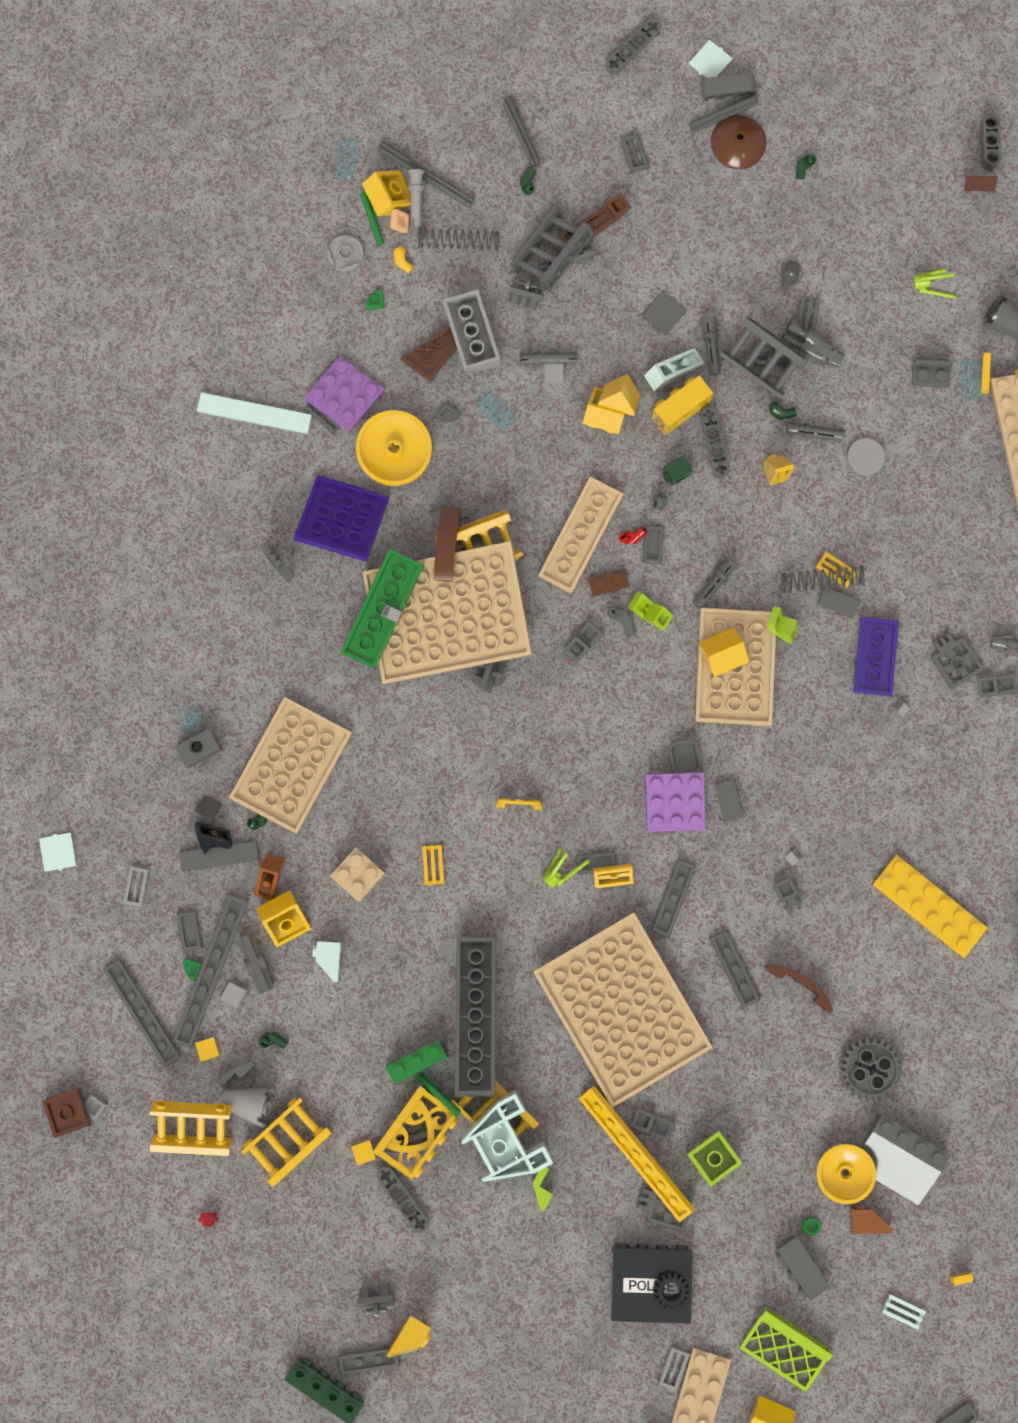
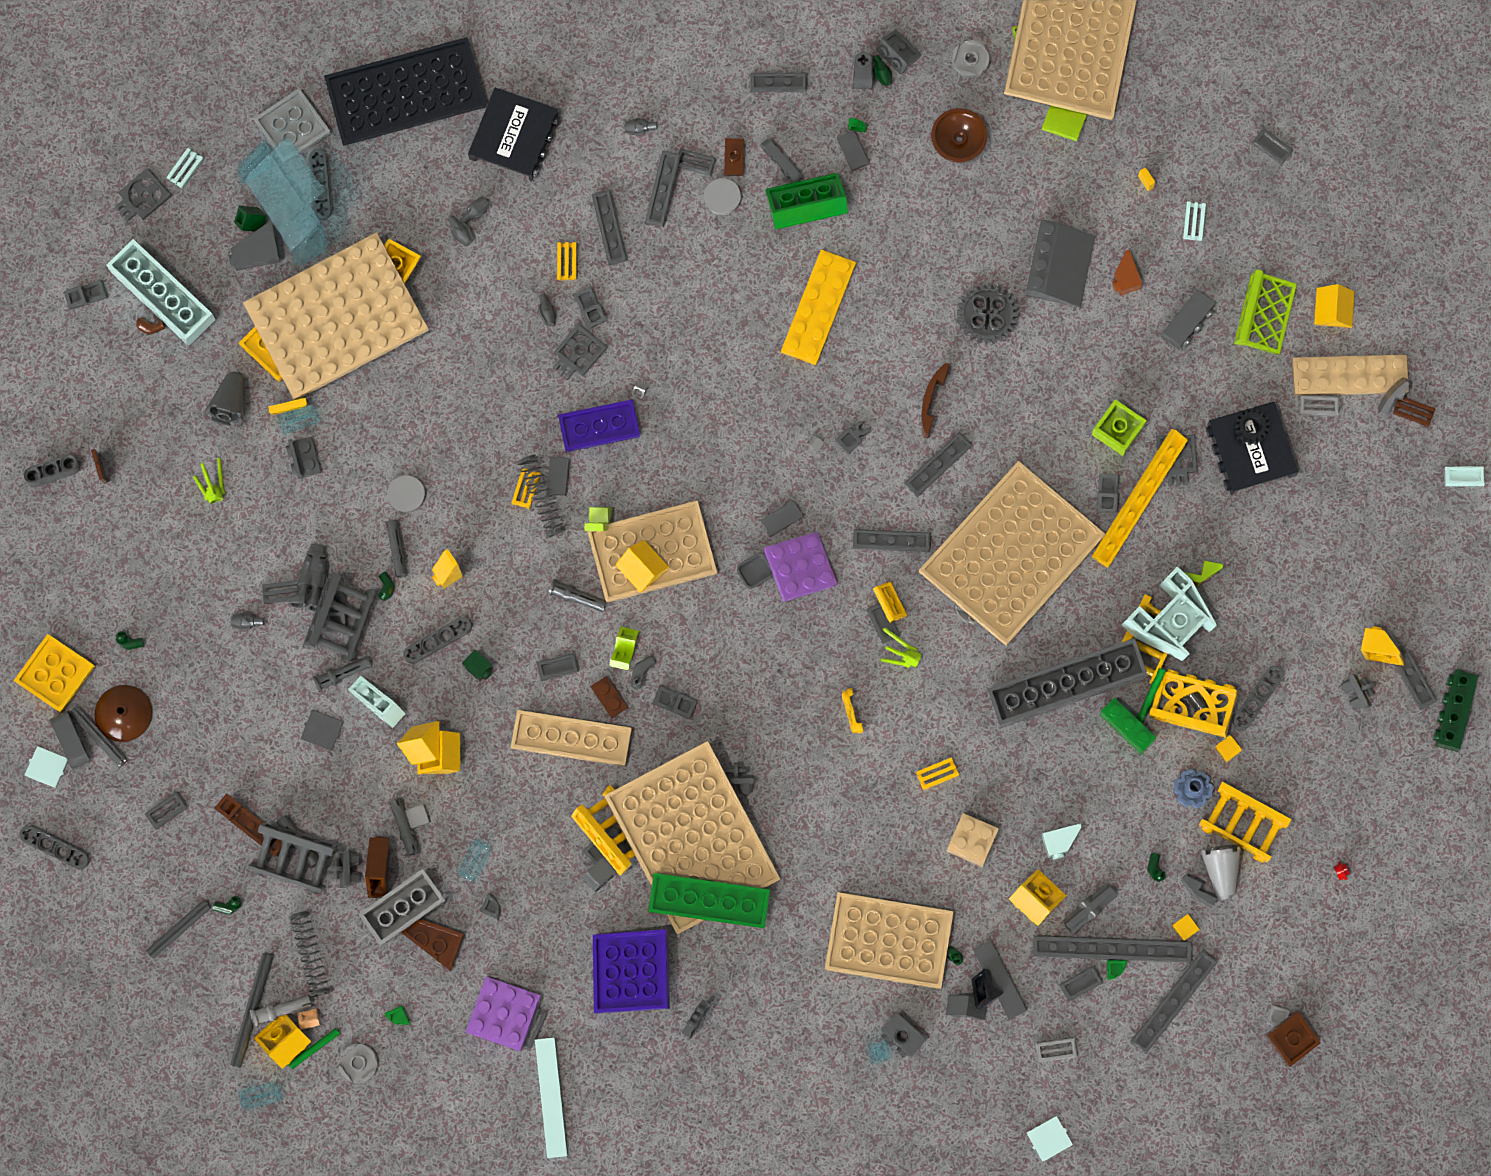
camera: 100 degrees left, 5 degrees down
(191, 1144) = (1278, 908): yellow fence -> none
(233, 994) = (1125, 920): light grey tile -> none
(269, 876) = (1002, 923): dark orange slope -> none
(333, 1114) = (1186, 795): none -> sand blue plant
(391, 613) = (711, 889): light grey piece -> none
(393, 448) = (544, 945): yellow dish -> none
(399, 259) = (347, 1006): yellow arm -> none
(446, 544) = (625, 857): reddish brown slope -> none
(517, 322) = (377, 867): none -> reddish brown slope
(632, 537) = (557, 688): red arm -> none
(660, 501) = (512, 671): dark grey plate -> none
(681, 404) = (412, 681): yellow brick -> none
(795, 91) = (54, 673): none -> yellow plate
(811, 1226) = (1148, 324): green plate -> none
(847, 1188) = (1092, 294): yellow dish -> none

